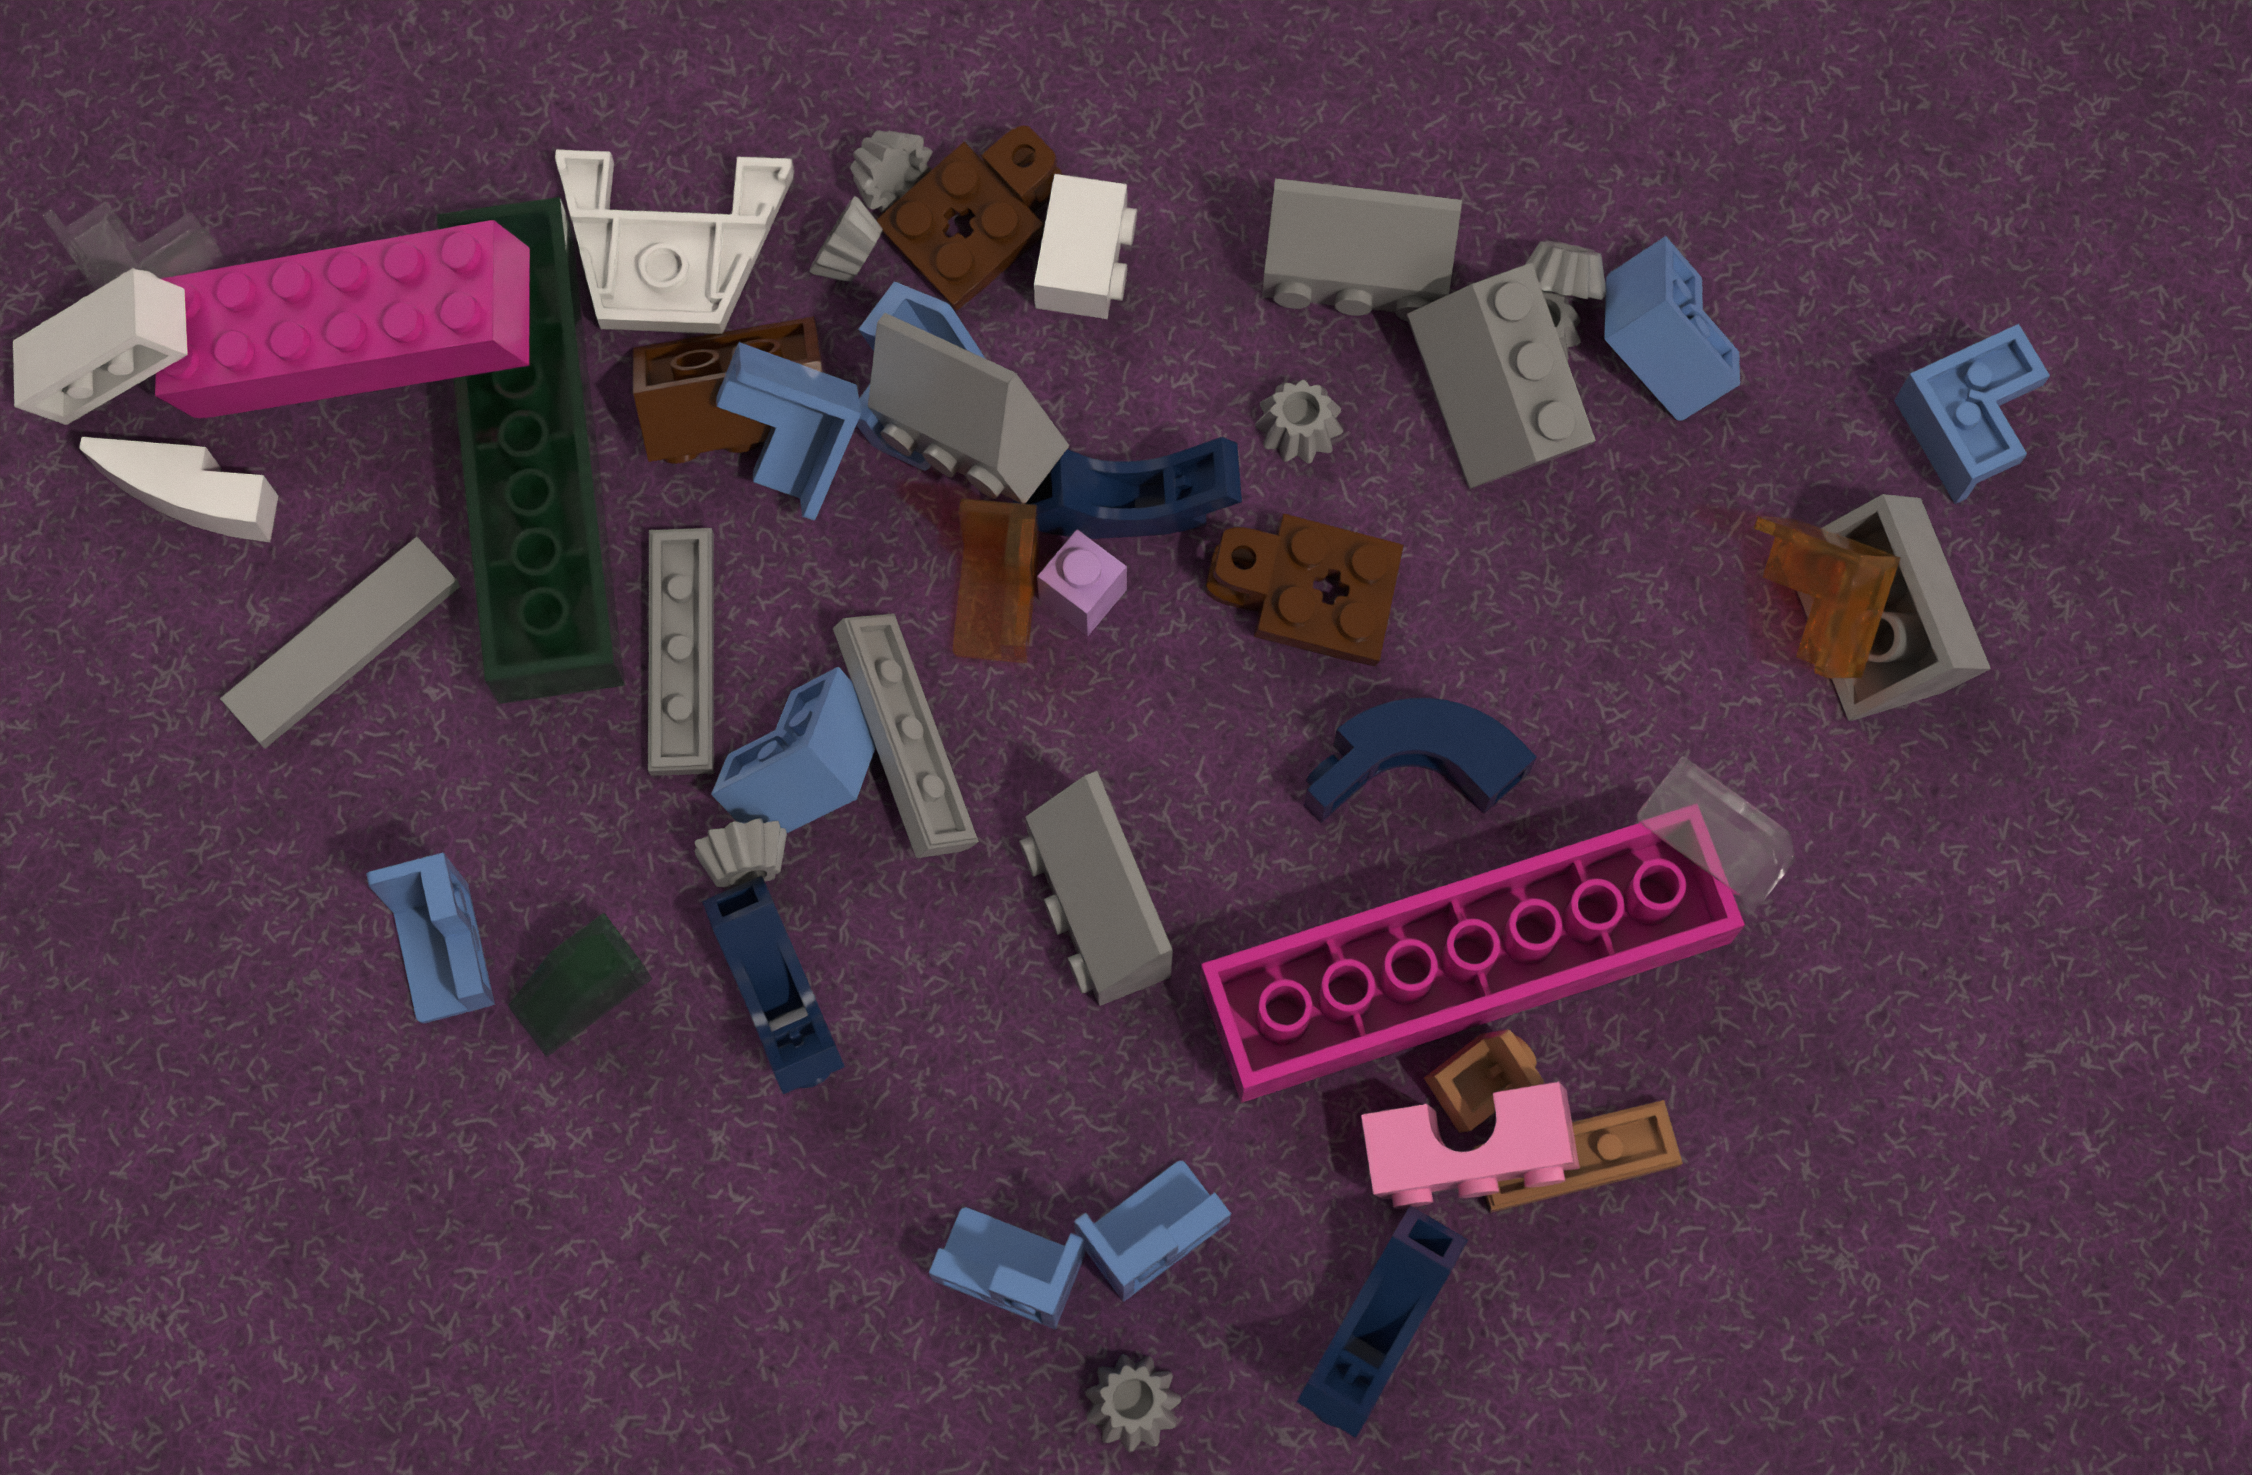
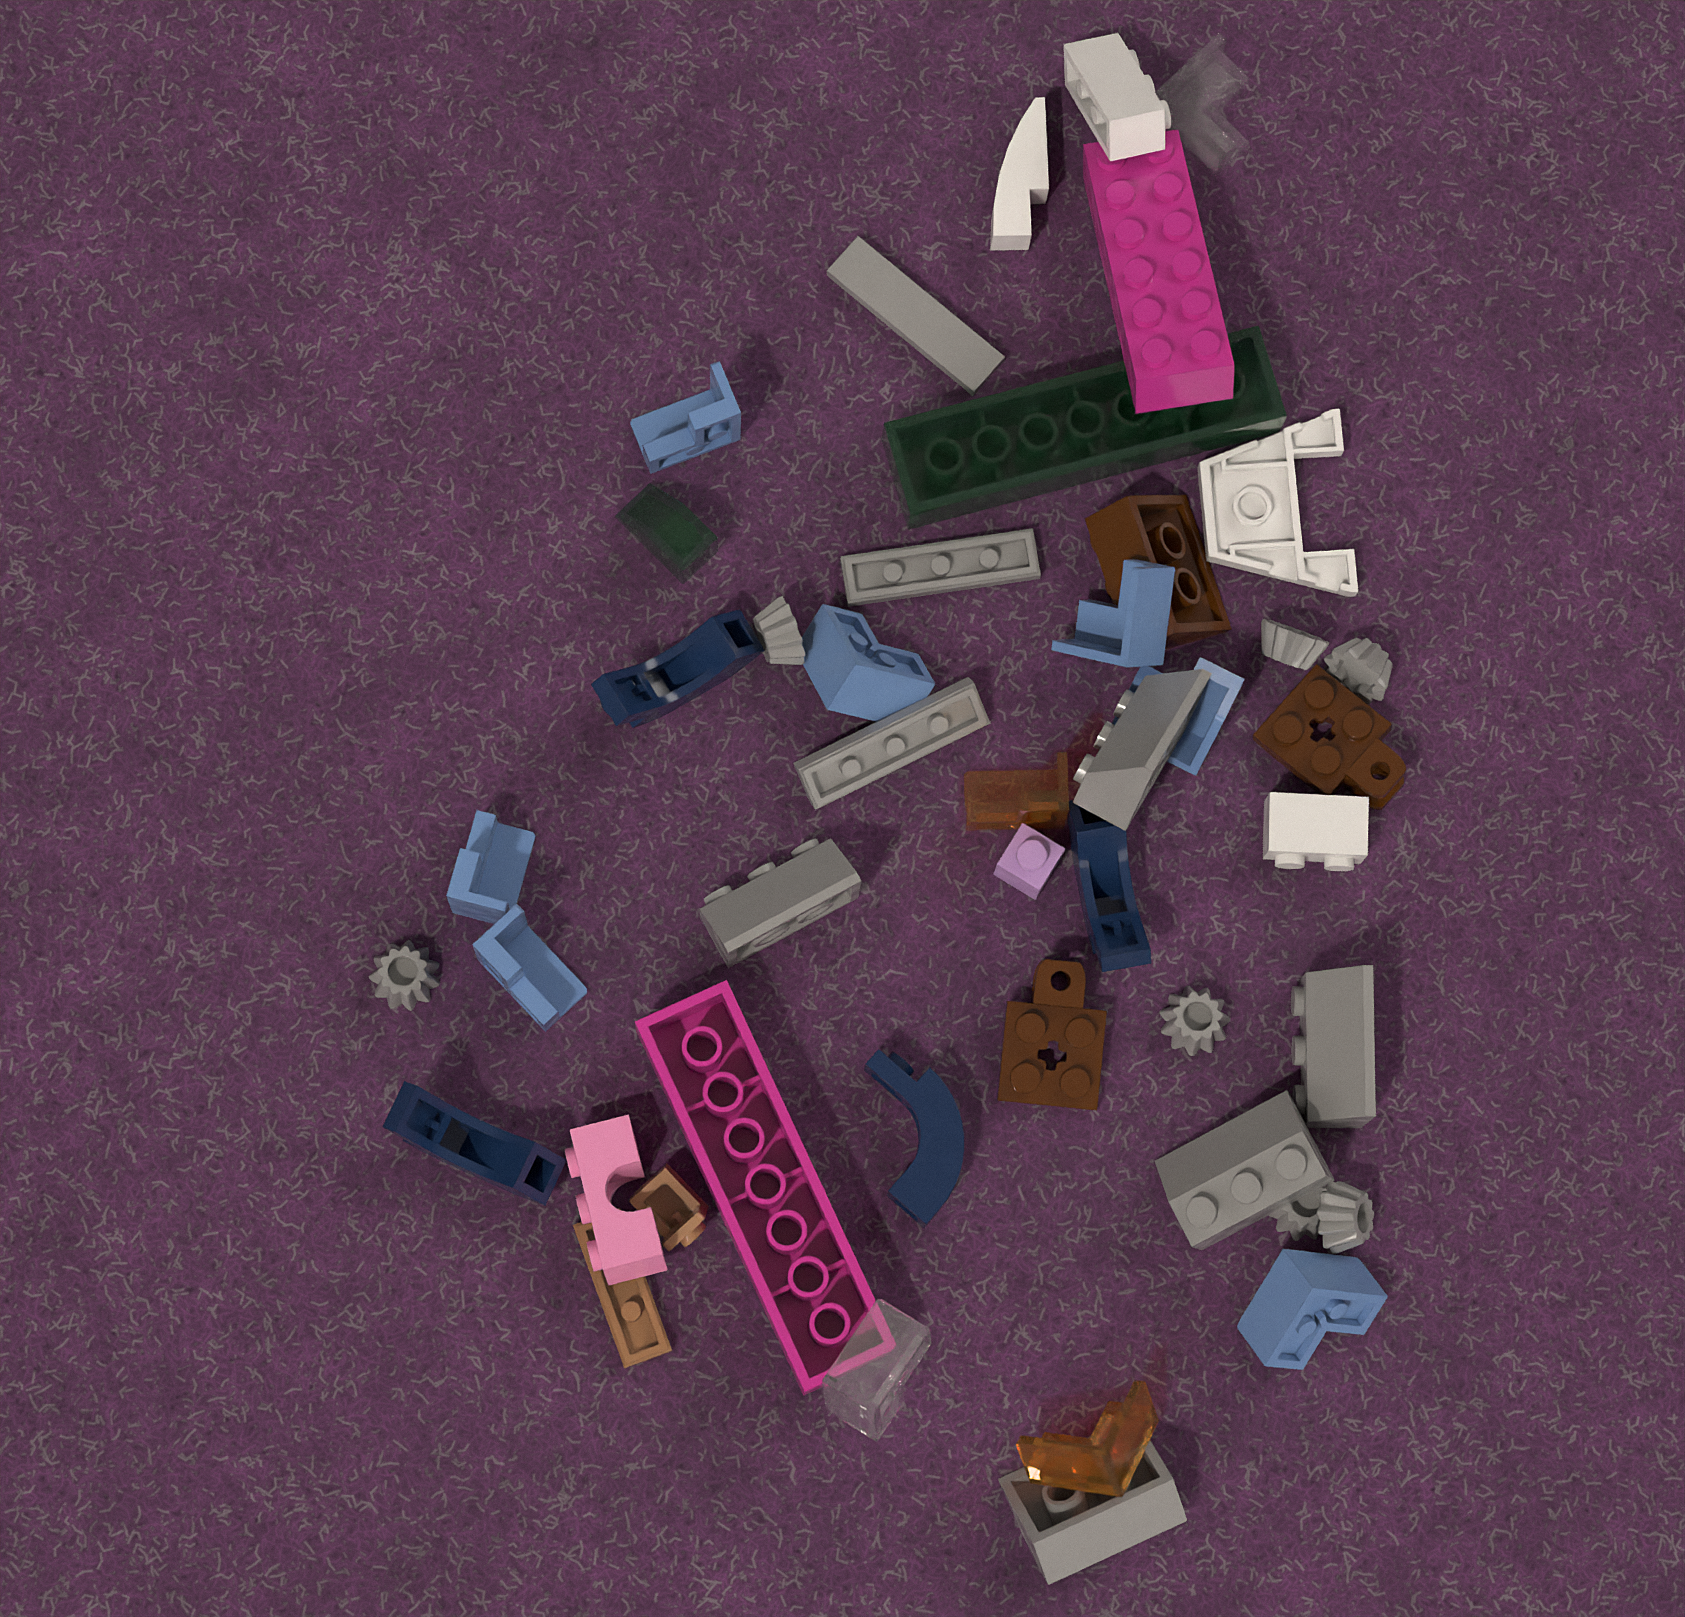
camera: 75 degrees right, 5 degrees up
(1958, 412) = (1275, 1546): medium blue panel -> none

